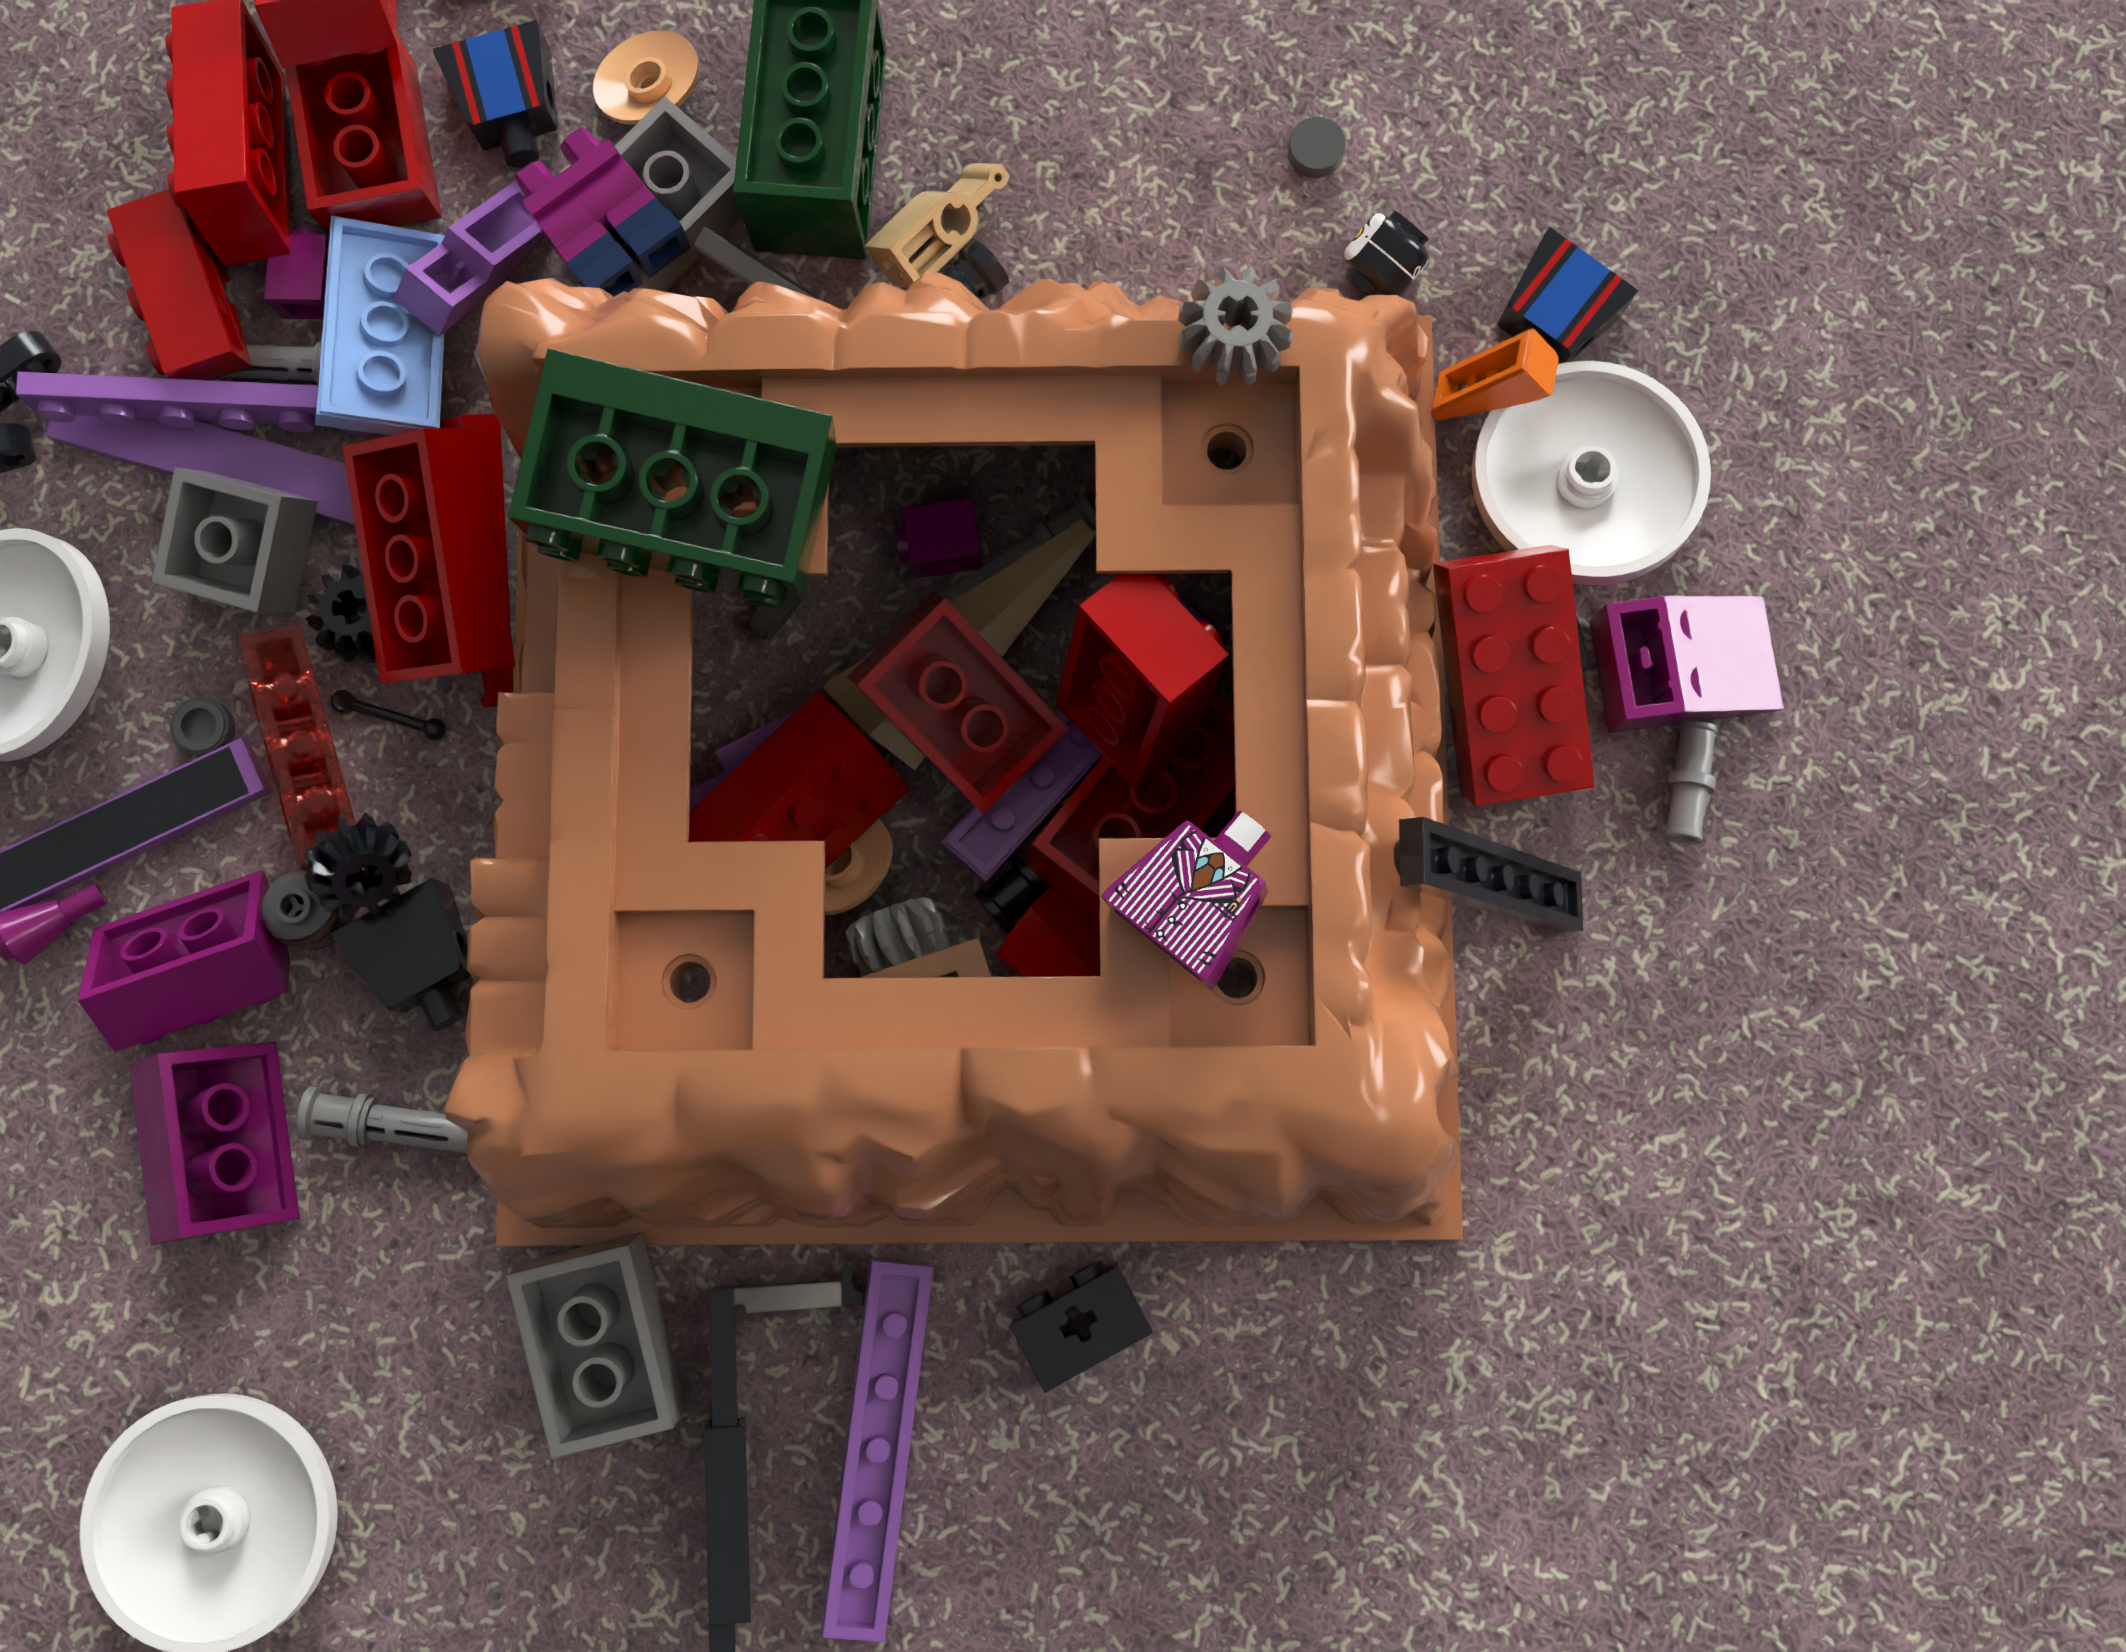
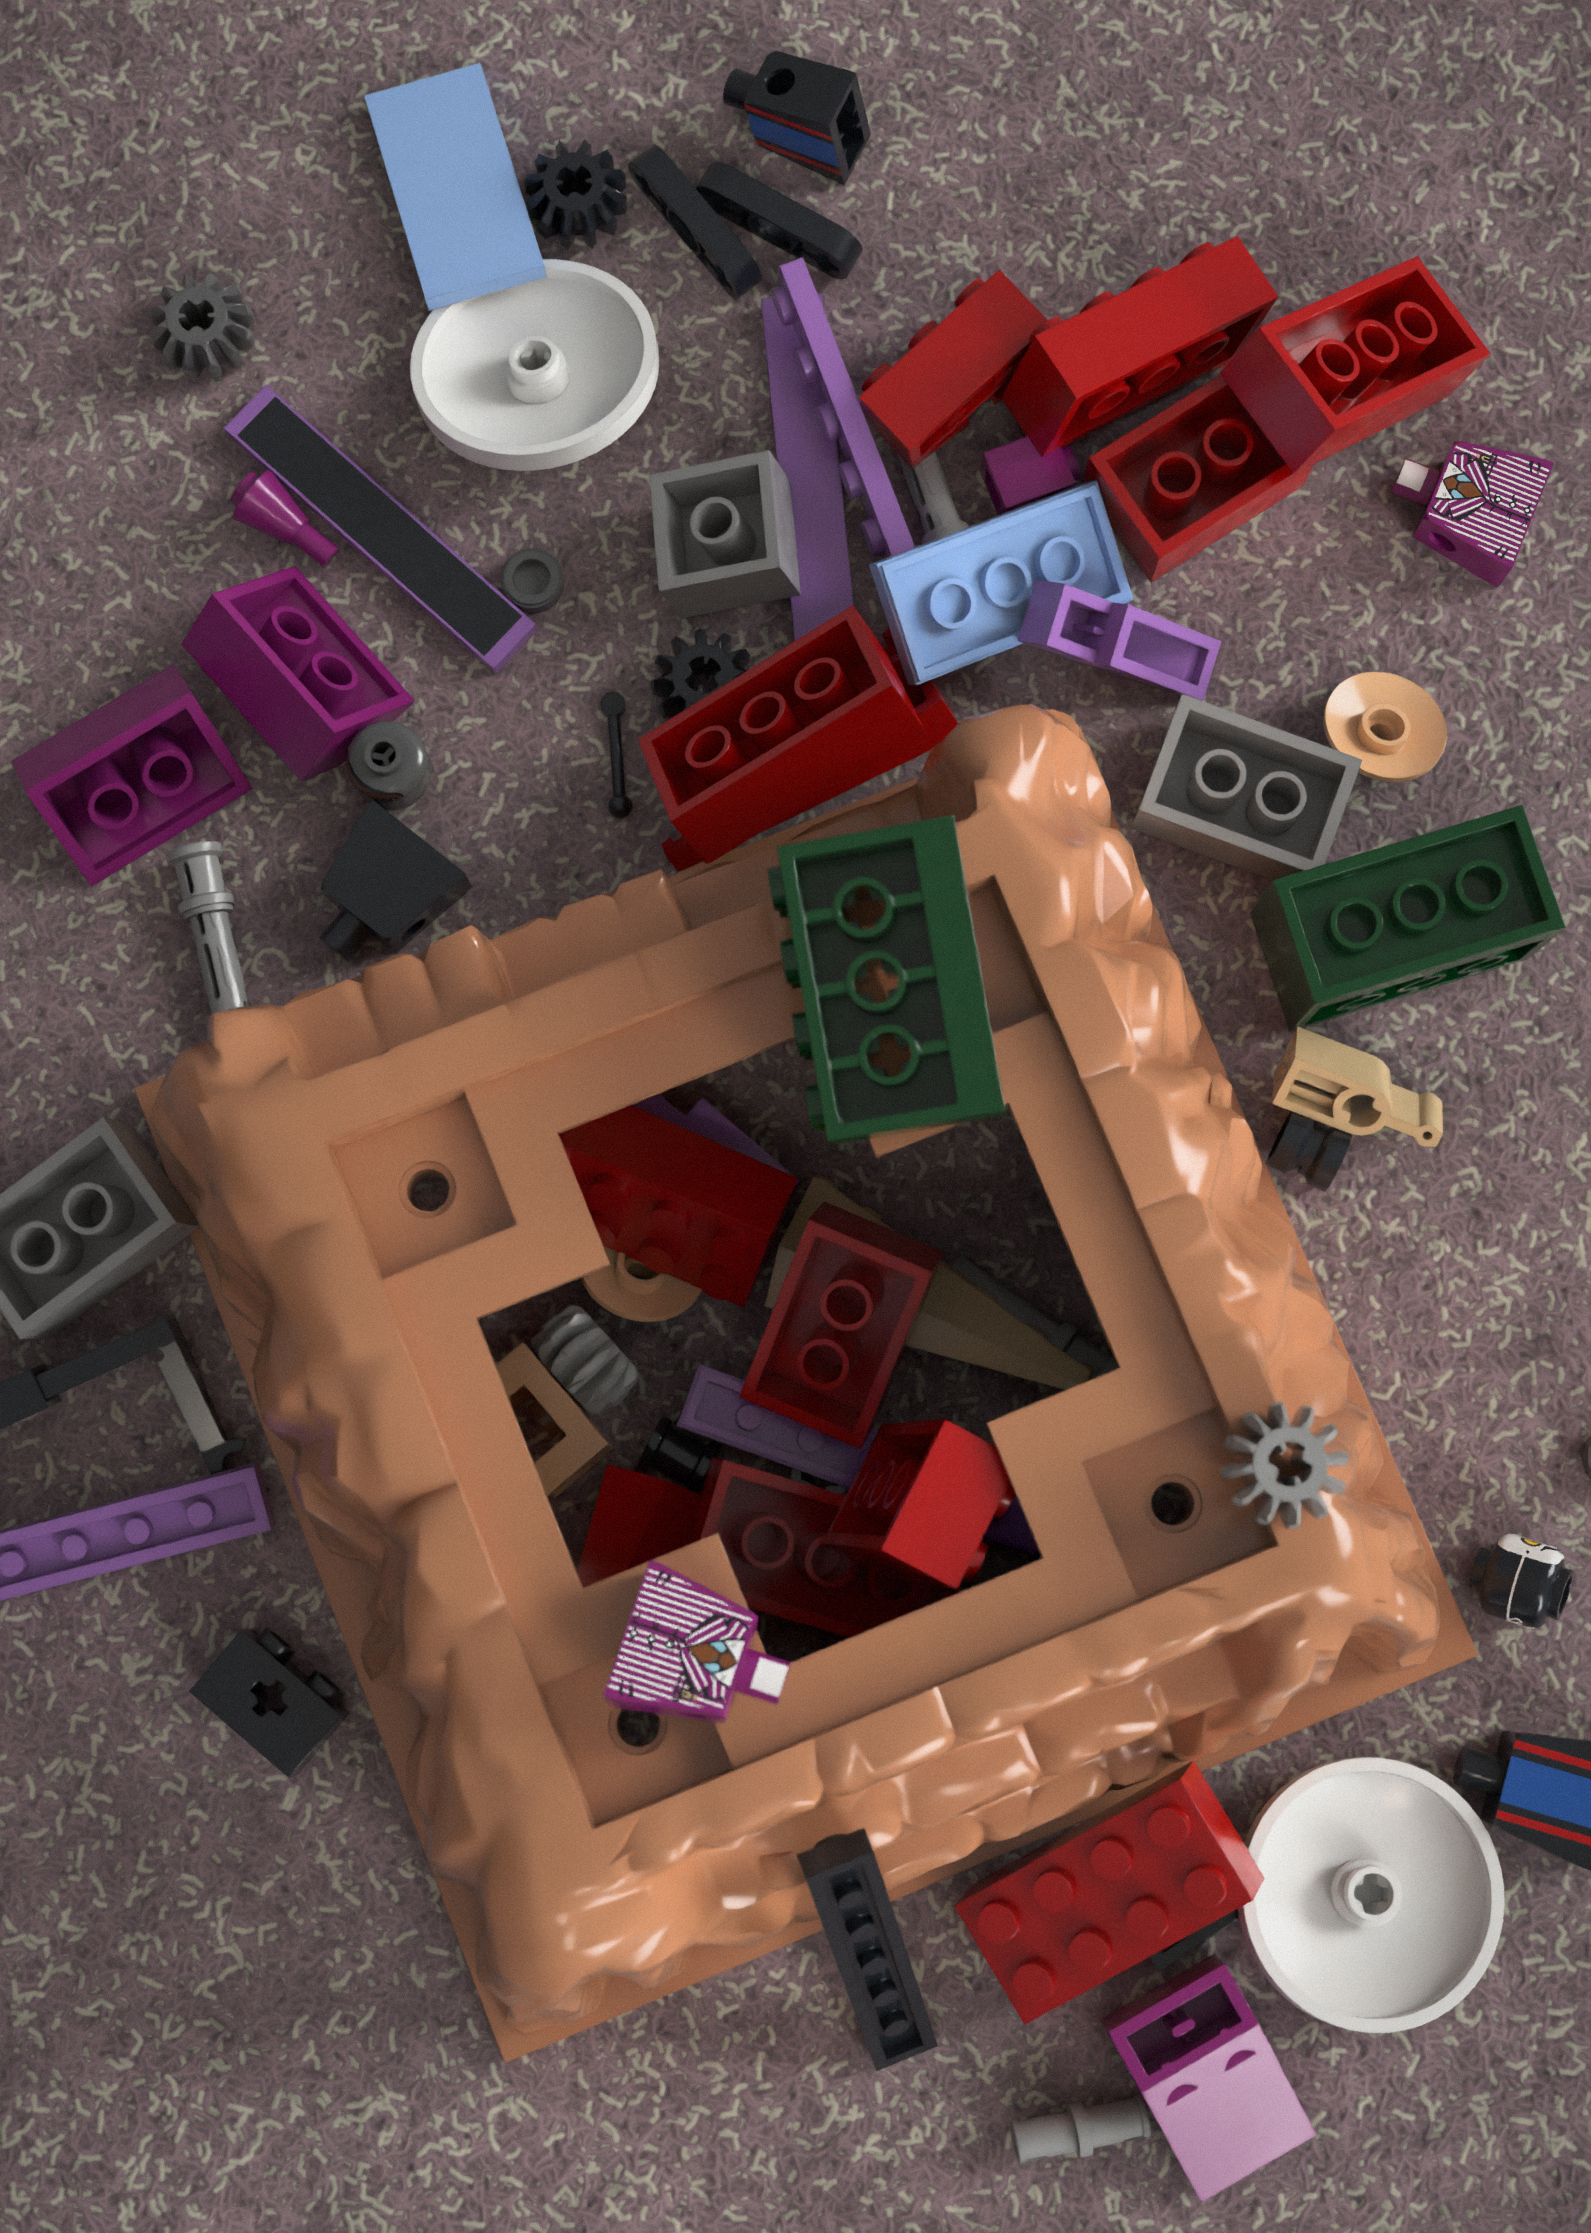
camera: 65 degrees right, 0 degrees up
(295, 734) = (543, 689): clear red brick -> none
(357, 865) = (445, 800): black gear -> none
(504, 88) = (1310, 588): torso -> none
(589, 200) = (1208, 735): magenta hips -> none
(743, 263) = (1216, 937): dark grey piece -> none
(939, 538) = (1018, 1232): magenta brick -> none
(1497, 378) = (1441, 1789): orange slope -> none

